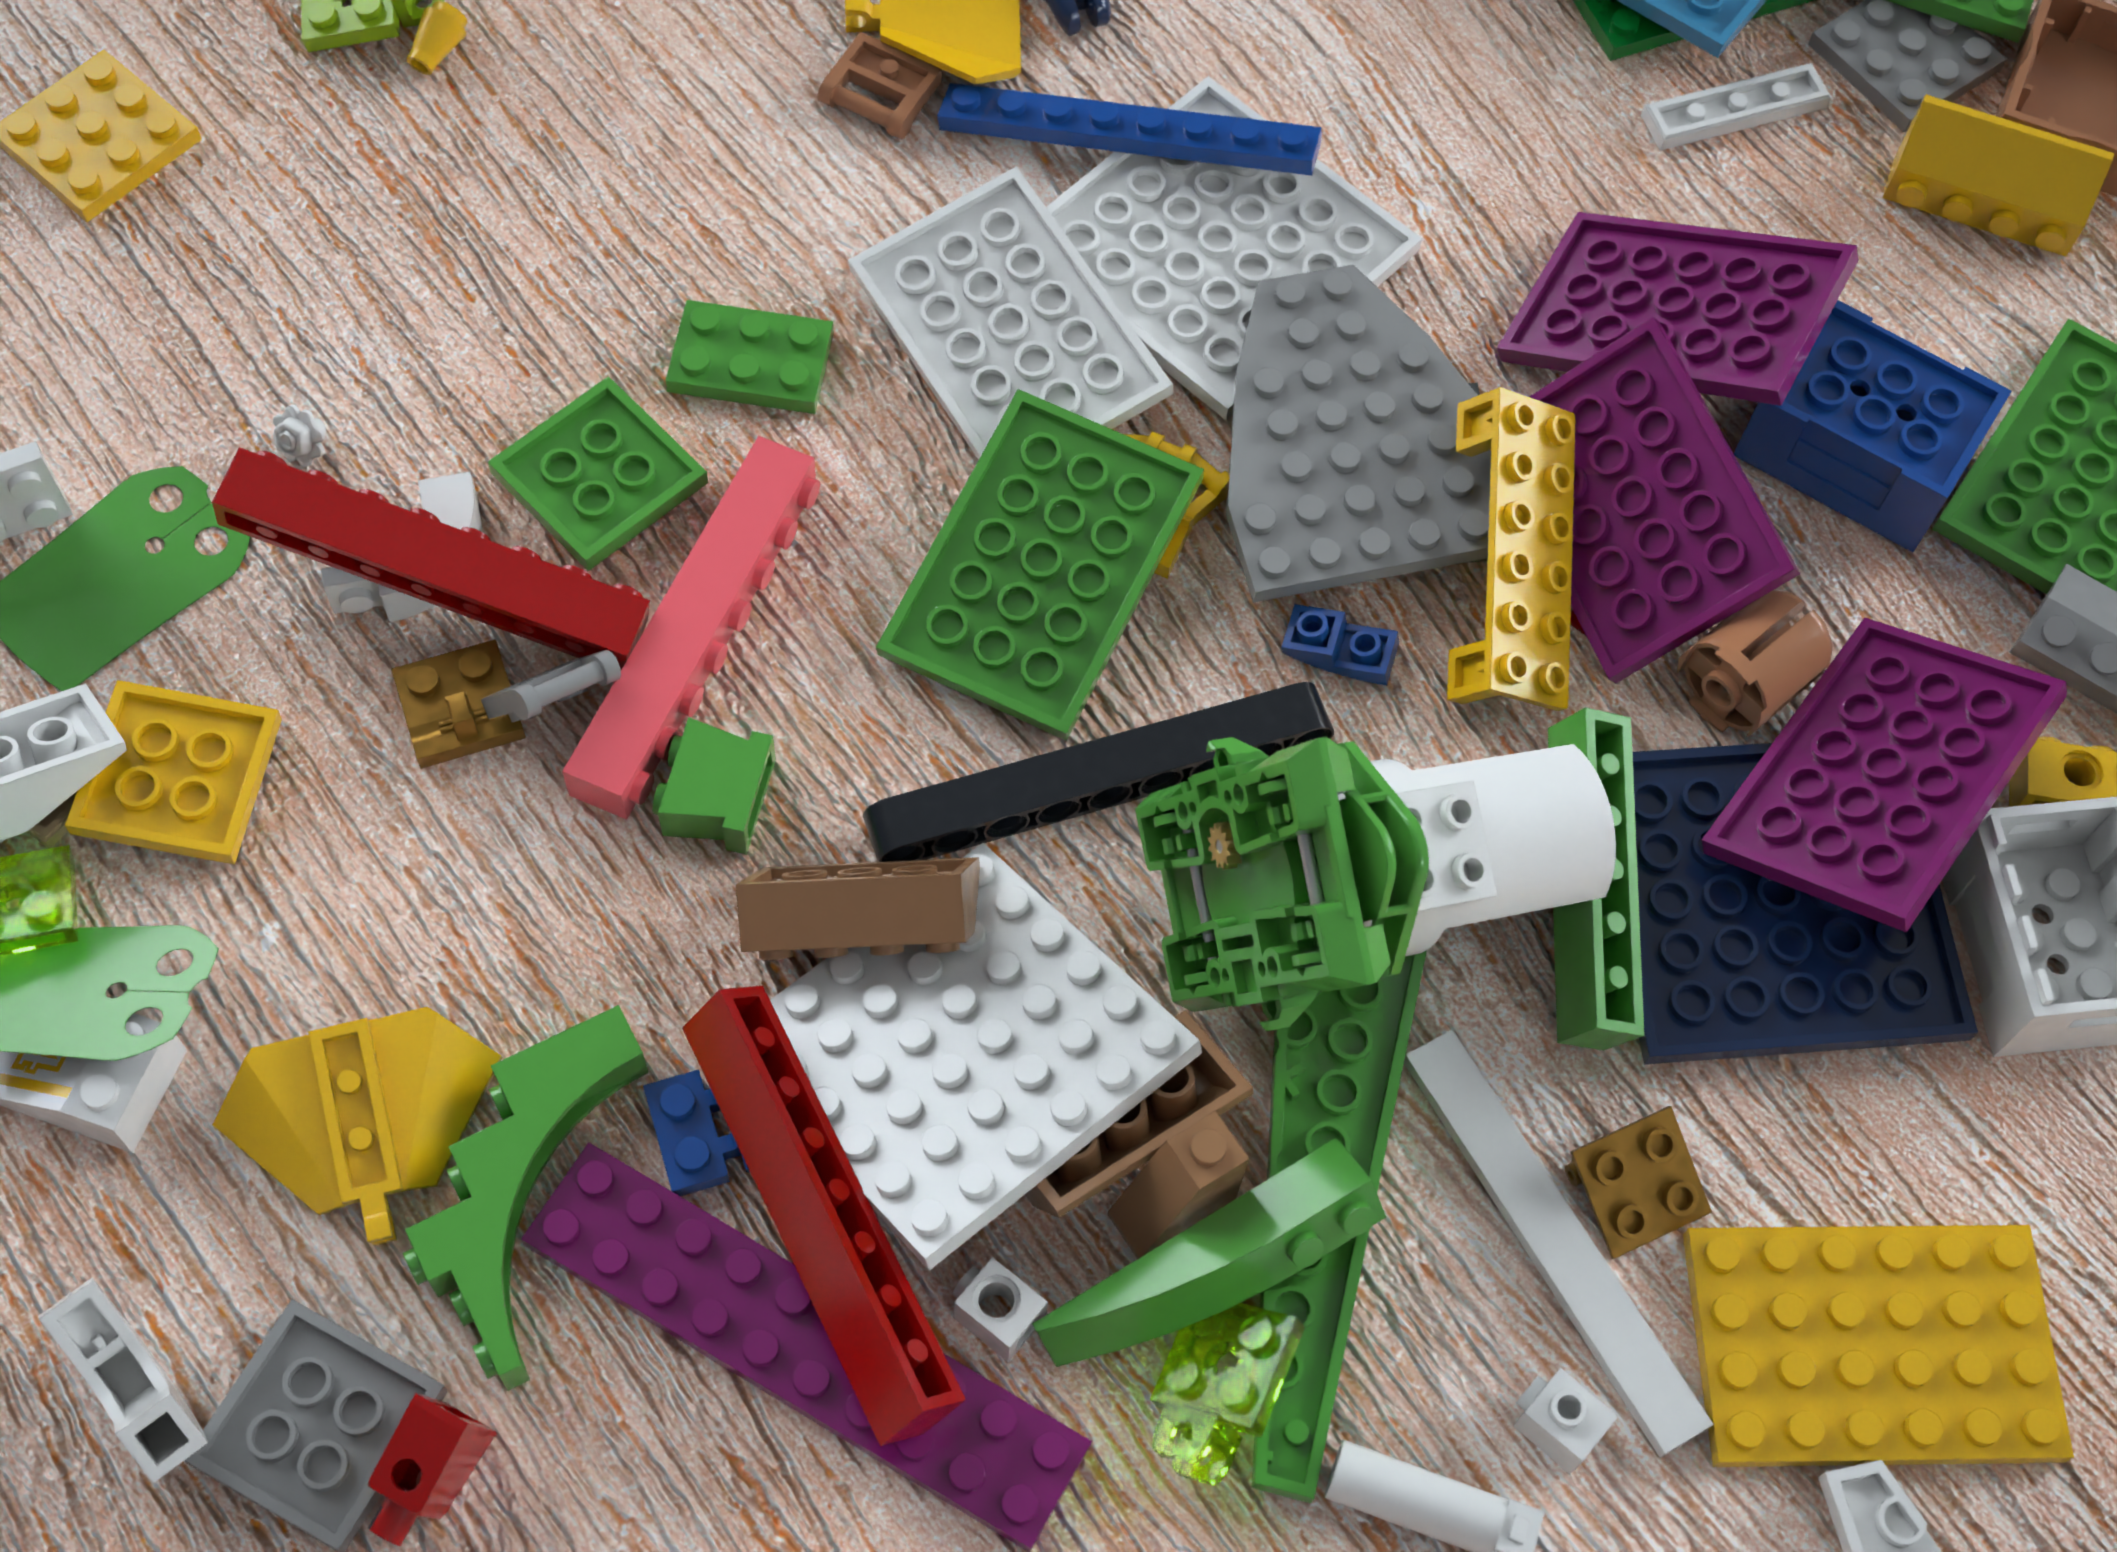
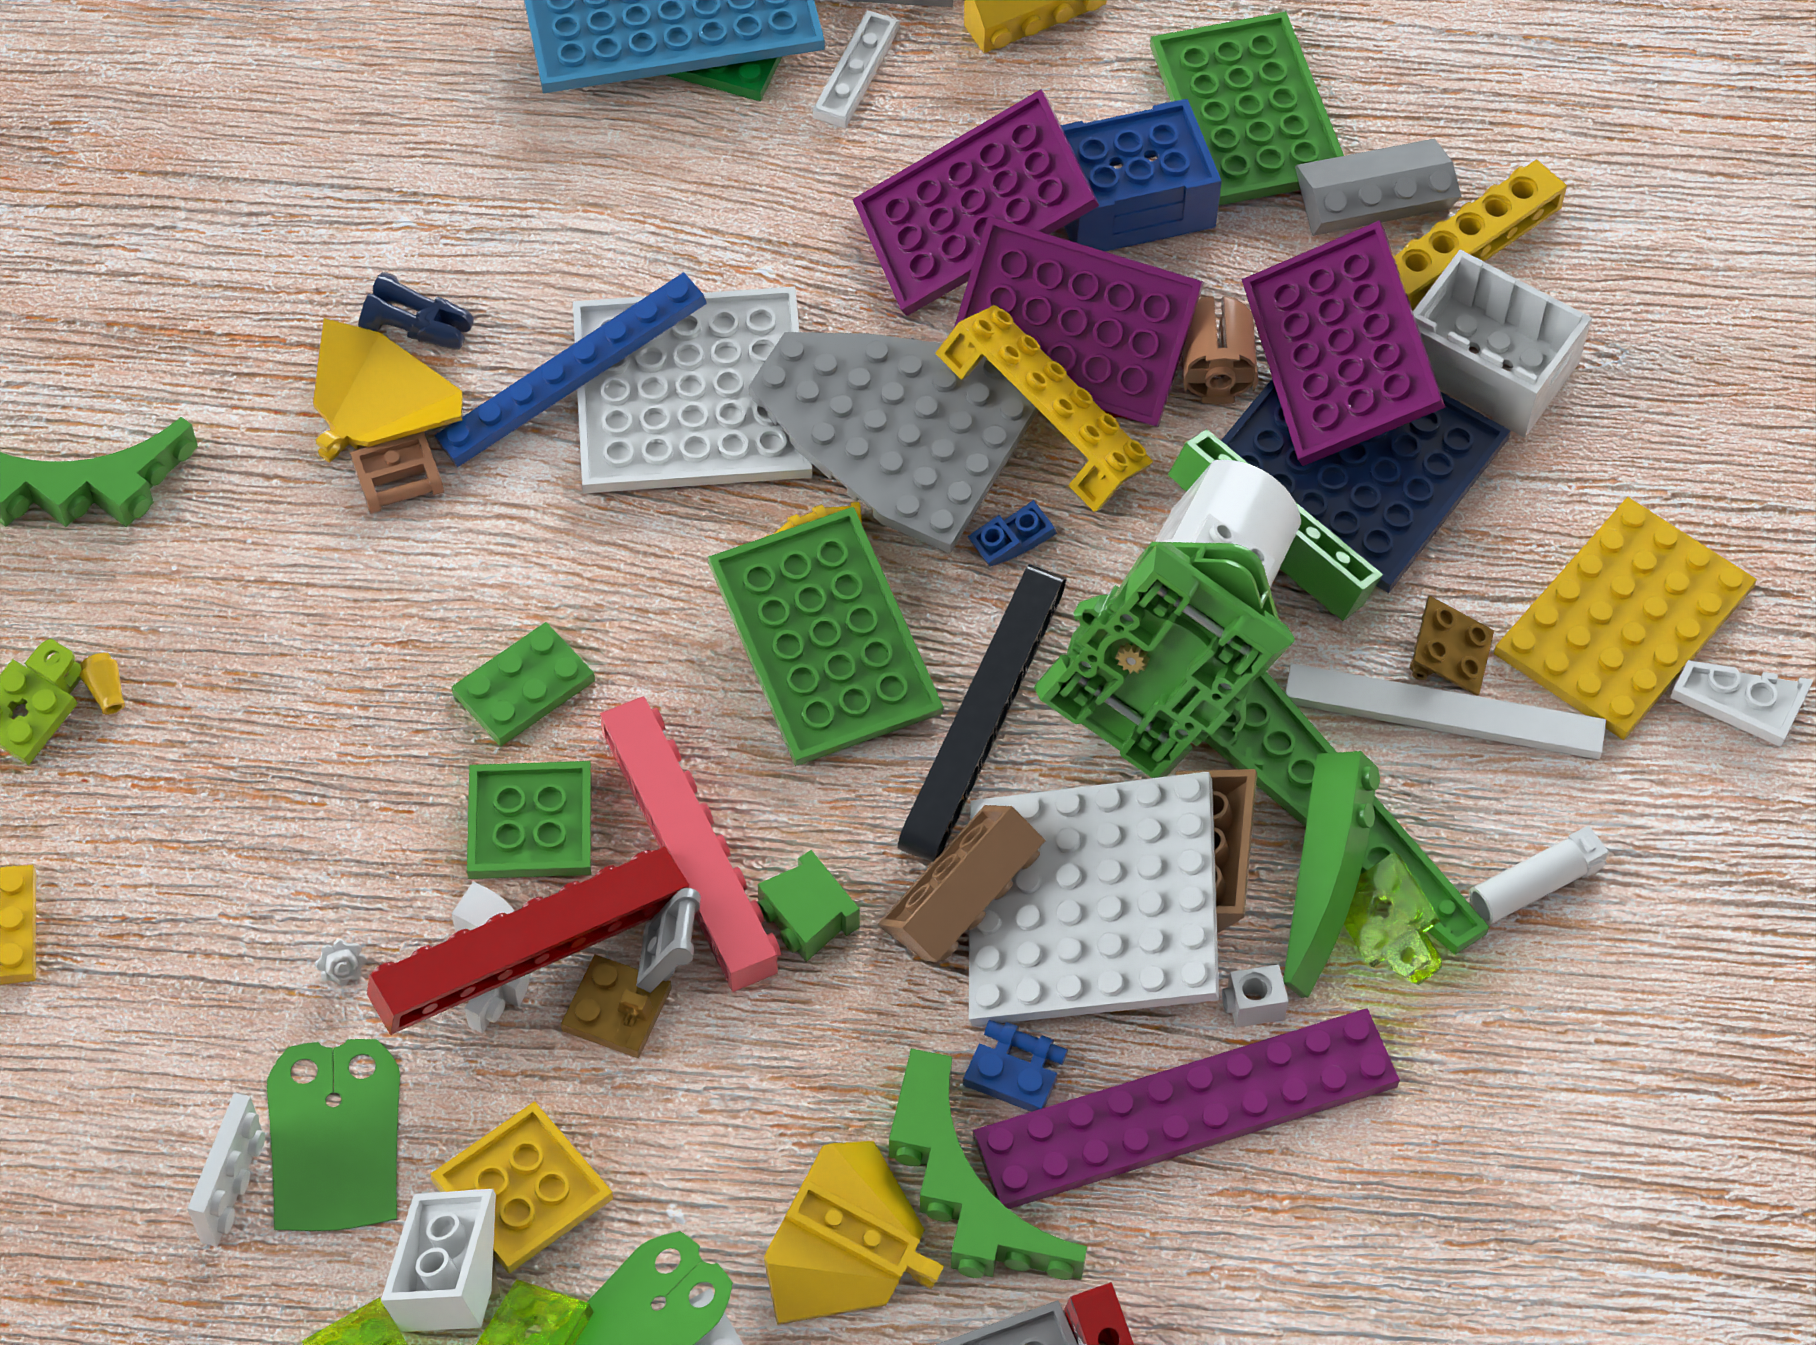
camera: 45 degrees left, 5 degrees down
(823, 1215) = (1132, 1030): red brick -> none
(1002, 303) = (639, 529): white plate -> none
(1180, 1185) = (1272, 852): medium nougat slope -> none
(1563, 1419) = (1546, 782): white brick -> none

